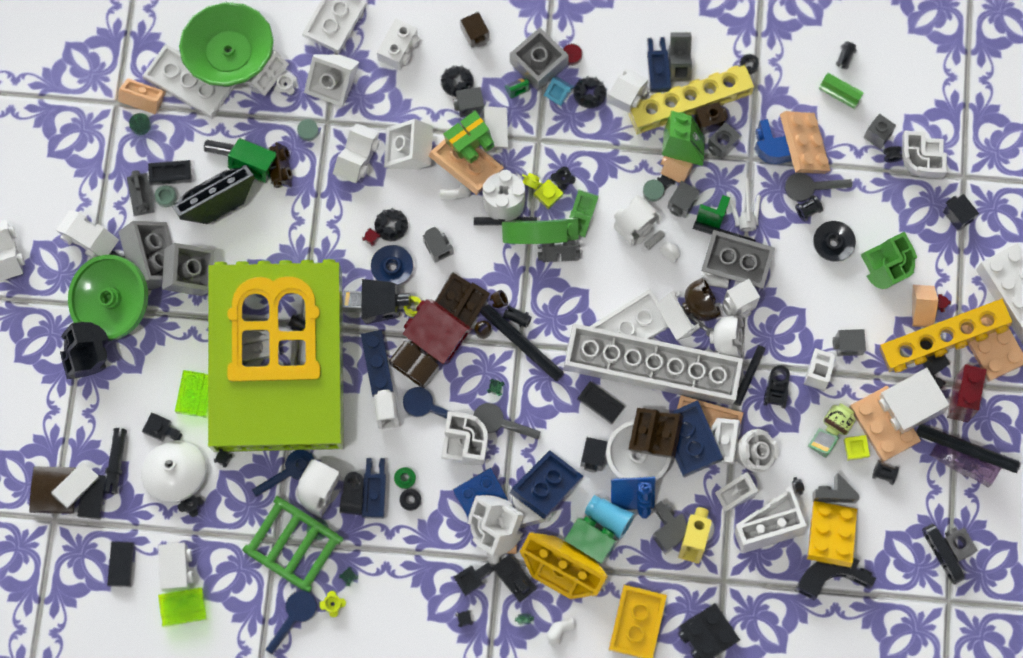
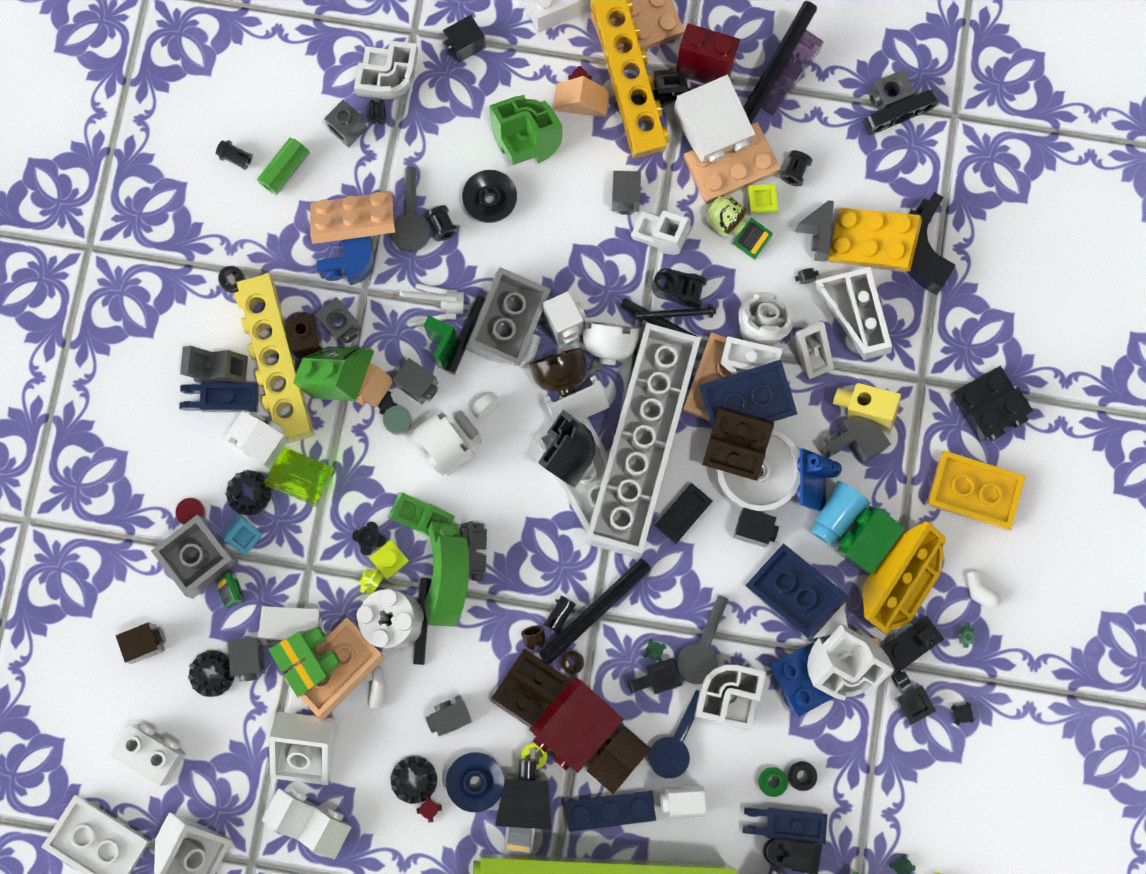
camera: 85 degrees left, 5 degrees up
(475, 390) = (660, 677): none -> black plate
(604, 125) = (300, 476): none -> clear neon green plate
(638, 308) = (570, 451): none -> black brick
(761, 414) = (710, 311): none -> black axle
(941, 365) = (670, 81): none -> black slope

